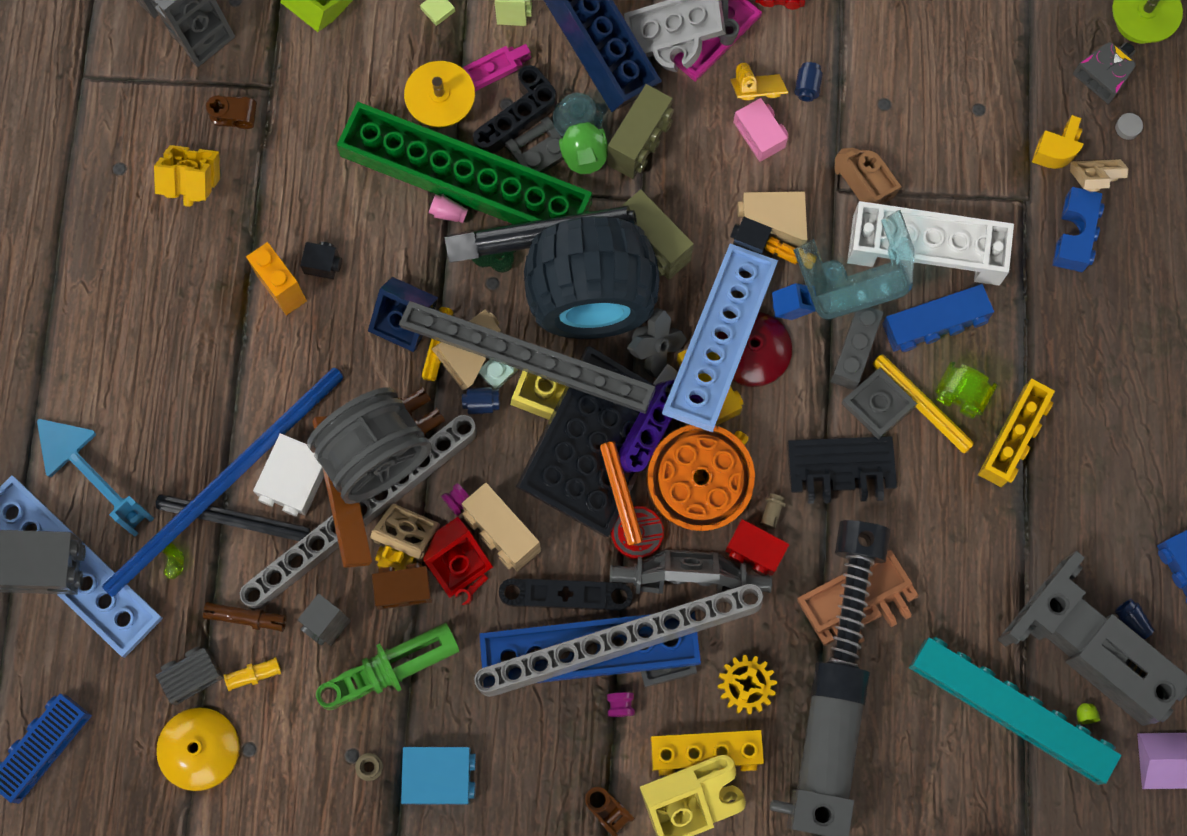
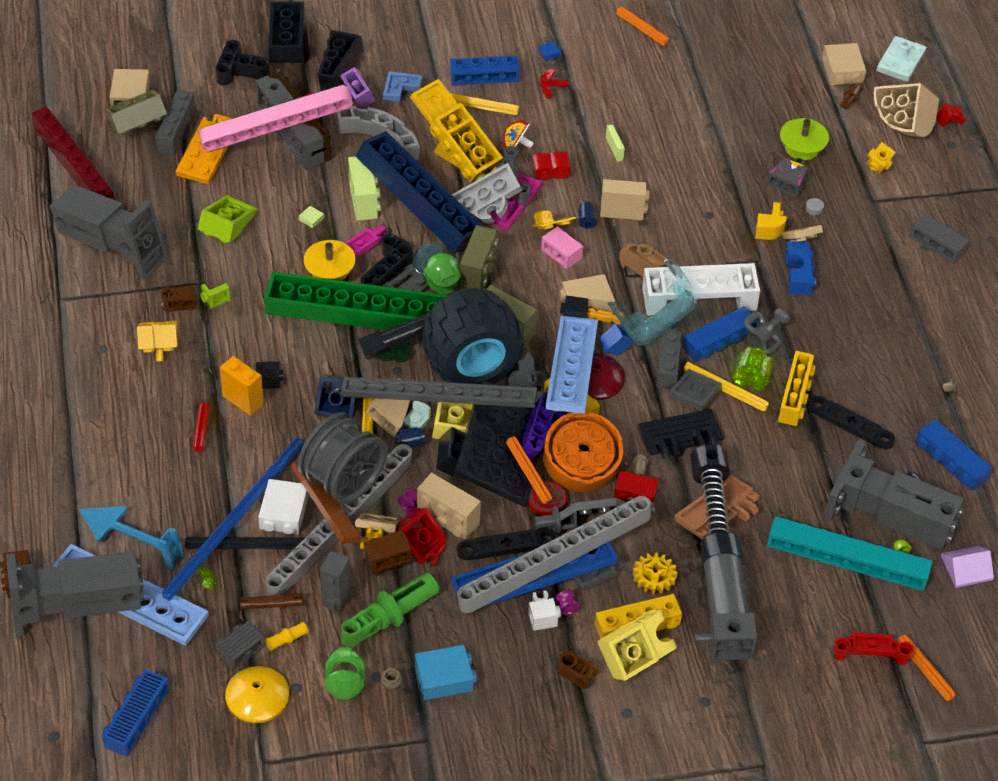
camera: 15 degrees left, 25 degrees down
(217, 323) = (201, 427): none -> red axle
(282, 117) = (215, 296): none -> lime bracket
(307, 758) = (344, 683): none -> bright green helmet
(447, 209) = (352, 330): bright pink cone -> none
(525, 436) = (449, 450): none -> black brick
(587, 714) = (543, 612): none -> white brick
(864, 70) = (624, 199): none -> tan brick
(999, 329) = (762, 333): none -> dark grey piece
(1090, 513) = (860, 427): none -> black piece

